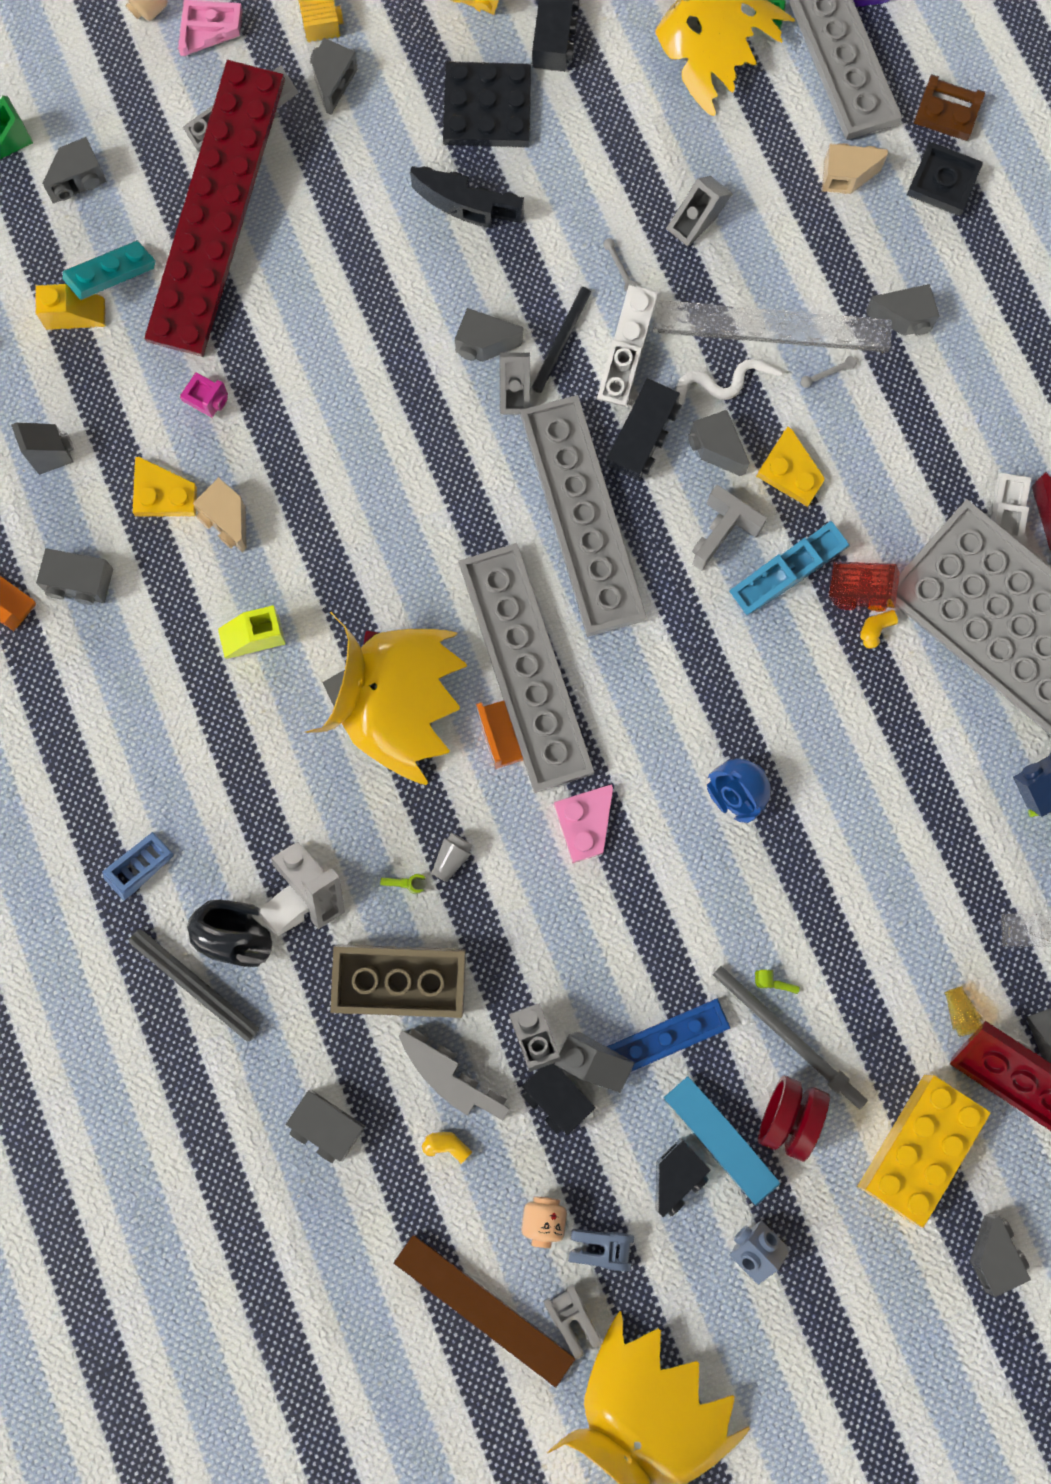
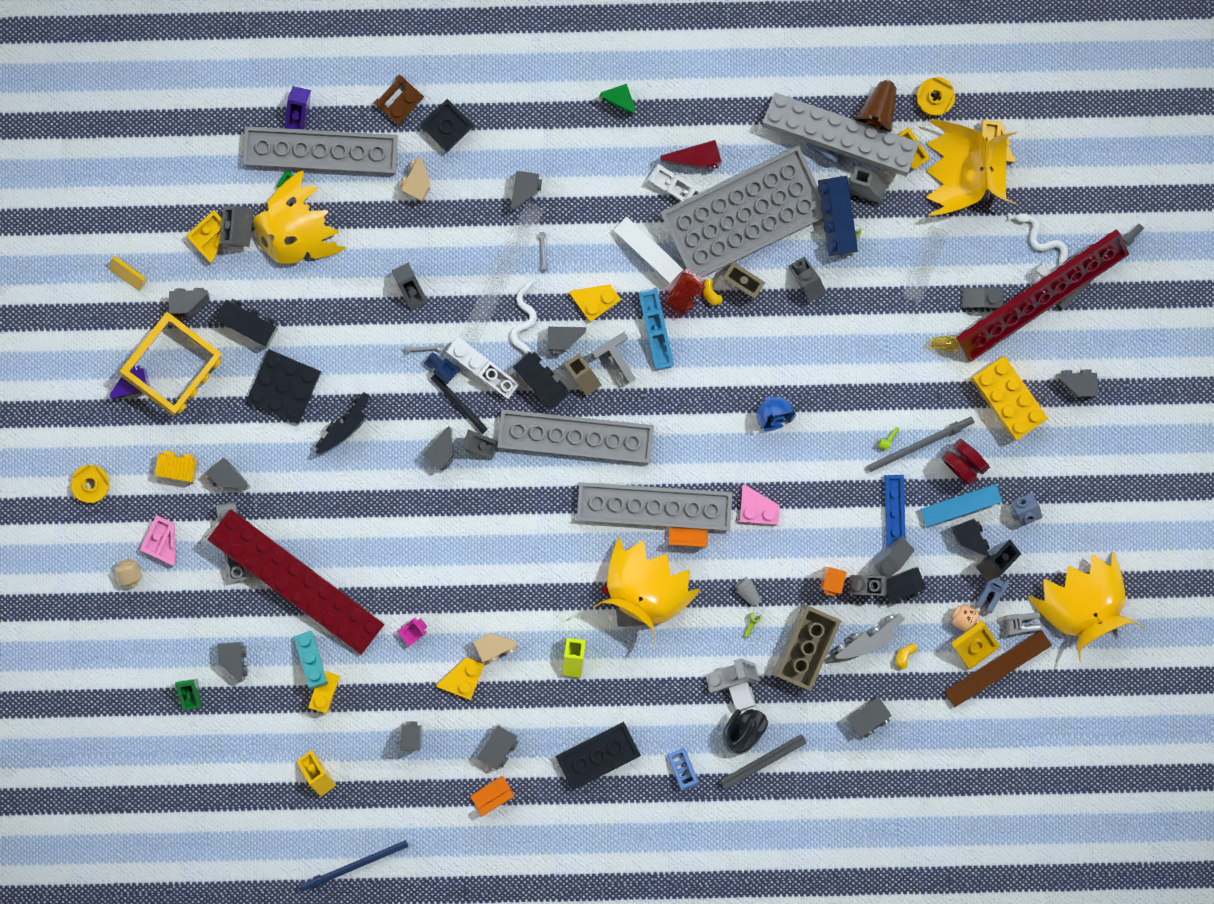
camera: 65 degrees left, 10 degrees up
(113, 728) = (598, 755): none -> black plate
(507, 1256) = (975, 645): none -> yellow plate
(519, 979) = (833, 581): none -> orange brick
(600, 297) = (443, 369): none -> dark blue plate
(659, 1238) = (998, 560): none -> black brick
(678, 485) = (582, 374): none -> dark tan slope
(899, 511) = (648, 250): none -> white slope
(920, 663) = (743, 280): none -> dark tan brick
(963, 760) = (807, 279): none -> dark grey slope

